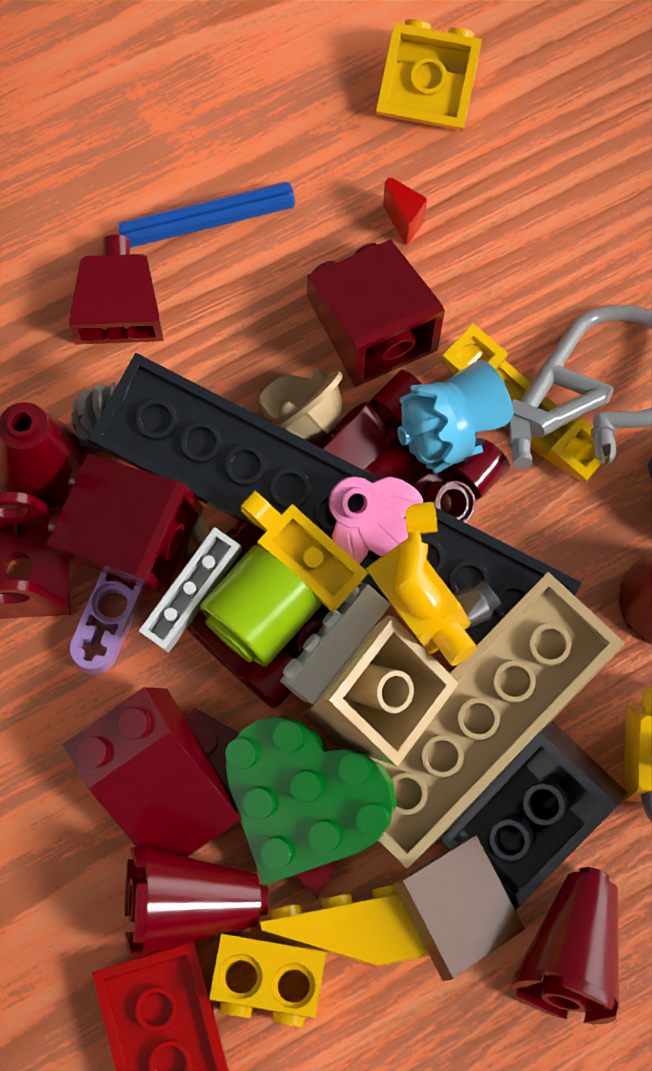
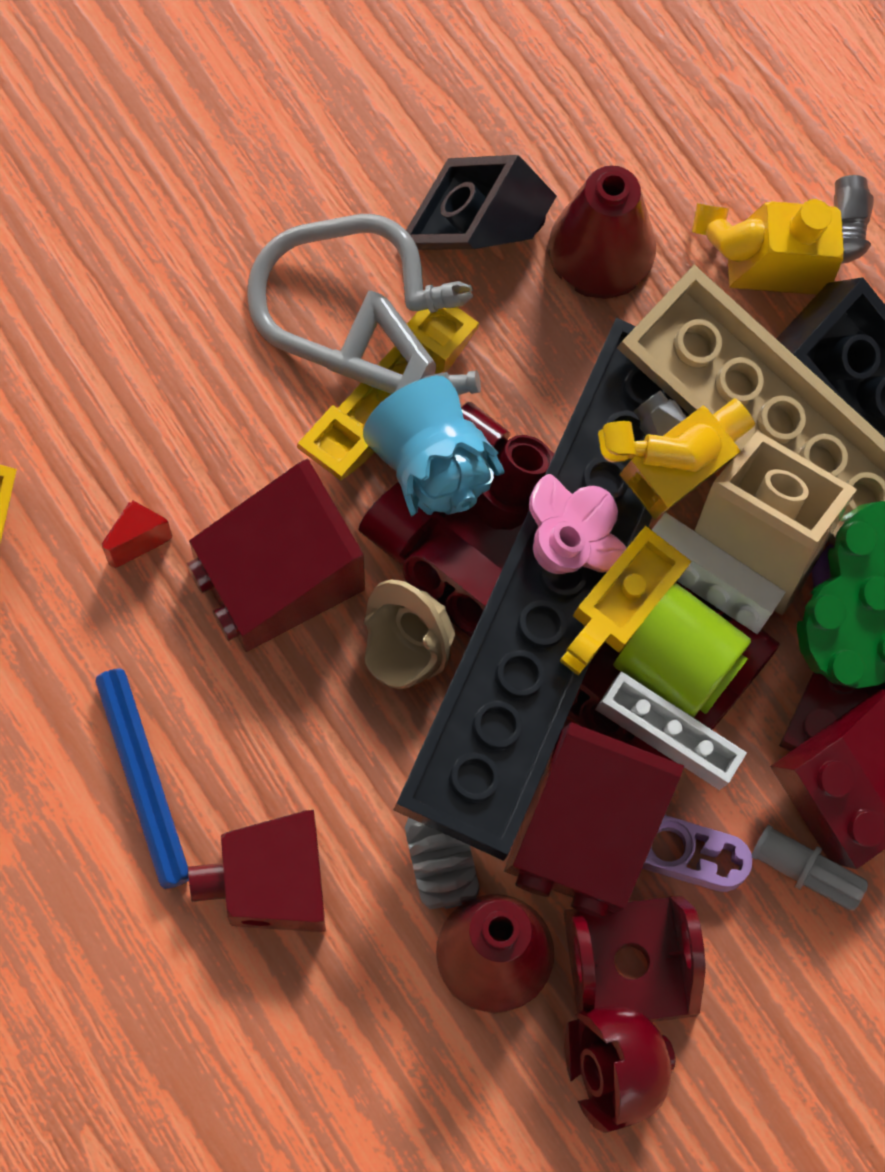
camera: 95 degrees left, 0 degrees up
(79, 715) = (810, 868): none -> light grey axle

